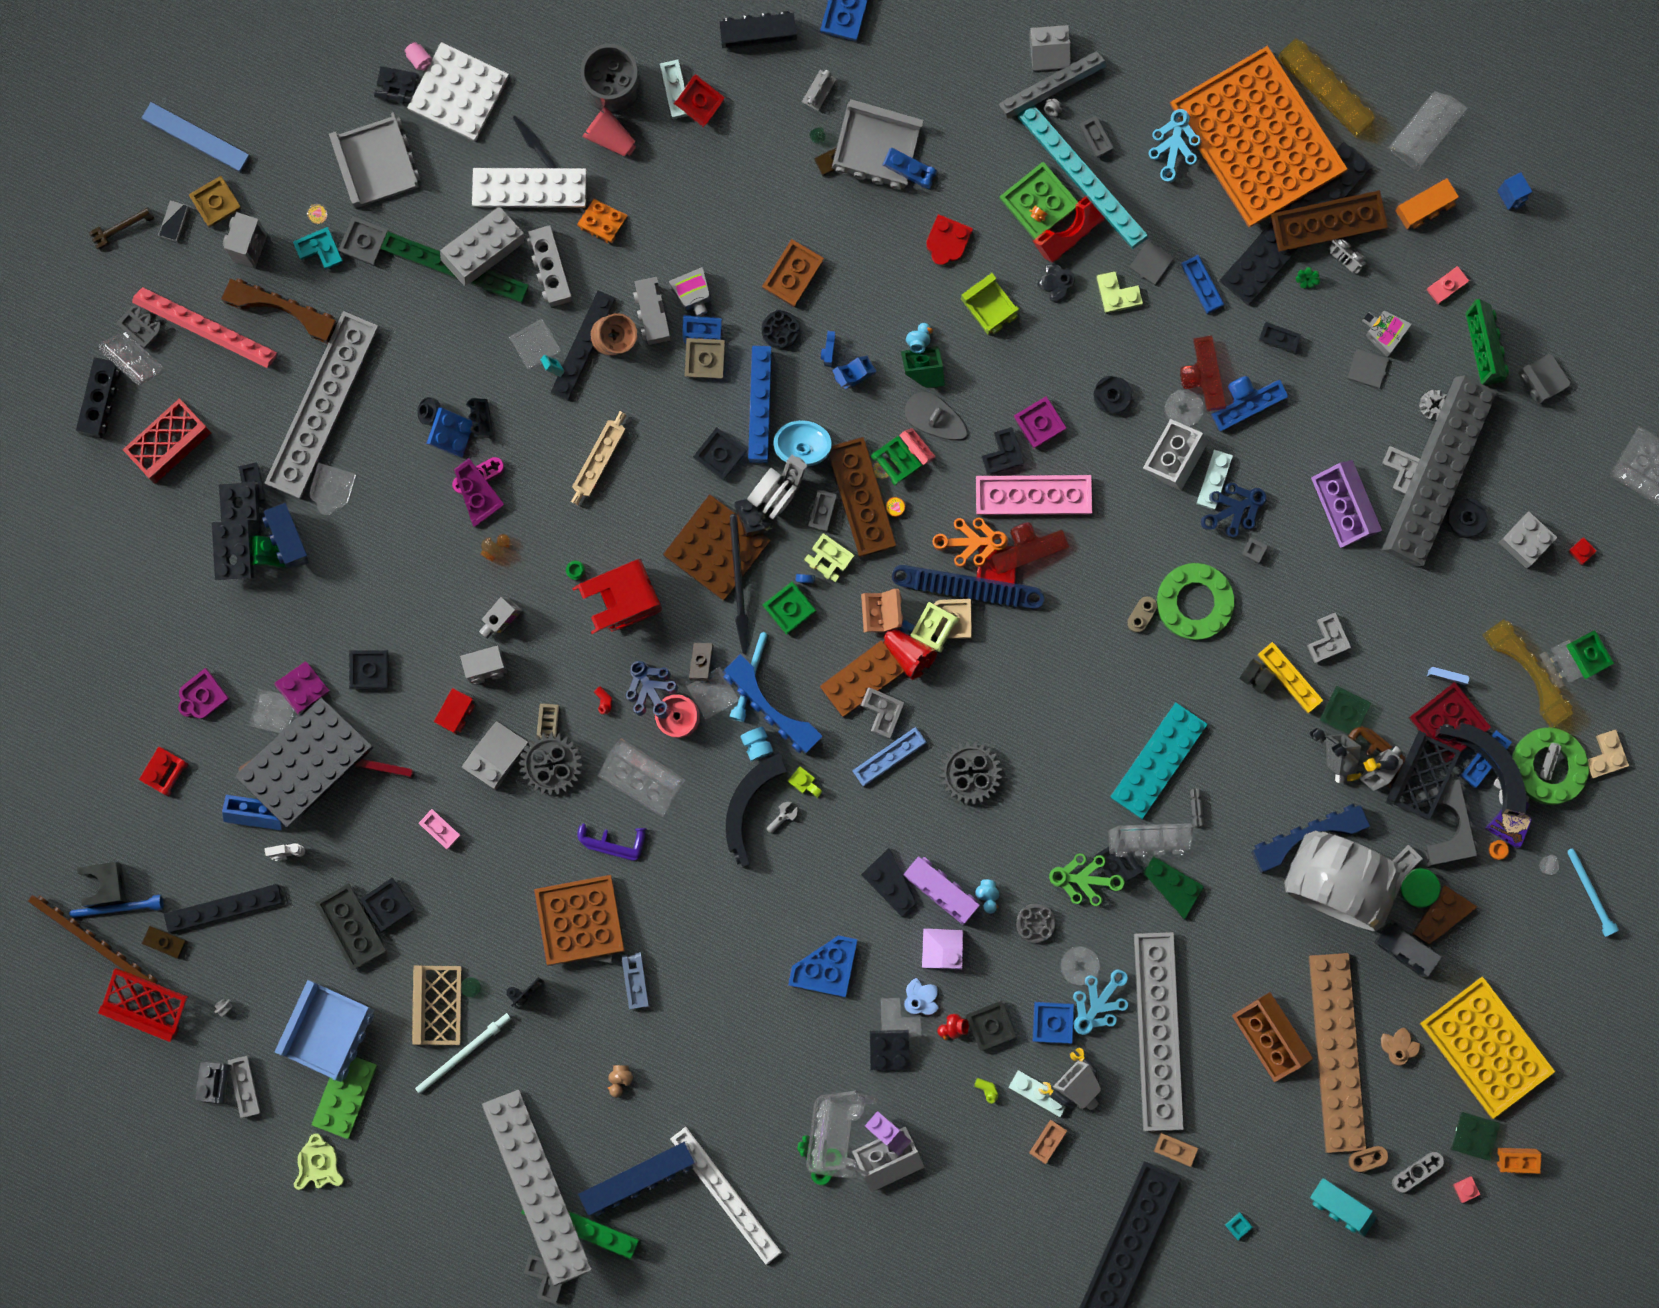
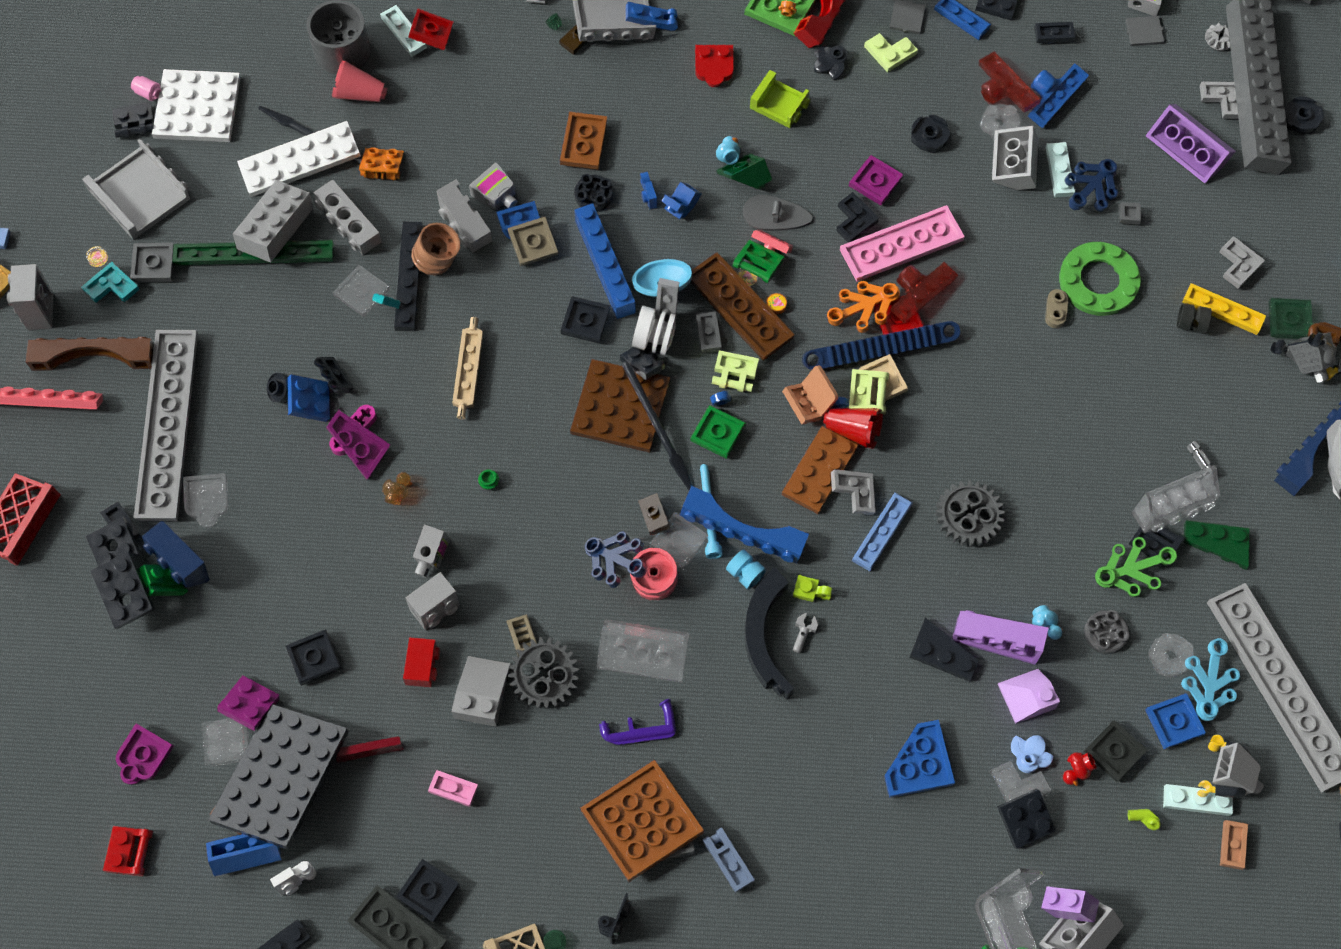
camera: 25 degrees left, 15 degrees down
(605, 701) = (573, 591): red arm -> none
(626, 596) = (550, 477): red piece -> none
(1158, 760) = (1142, 432): teal plate -> none

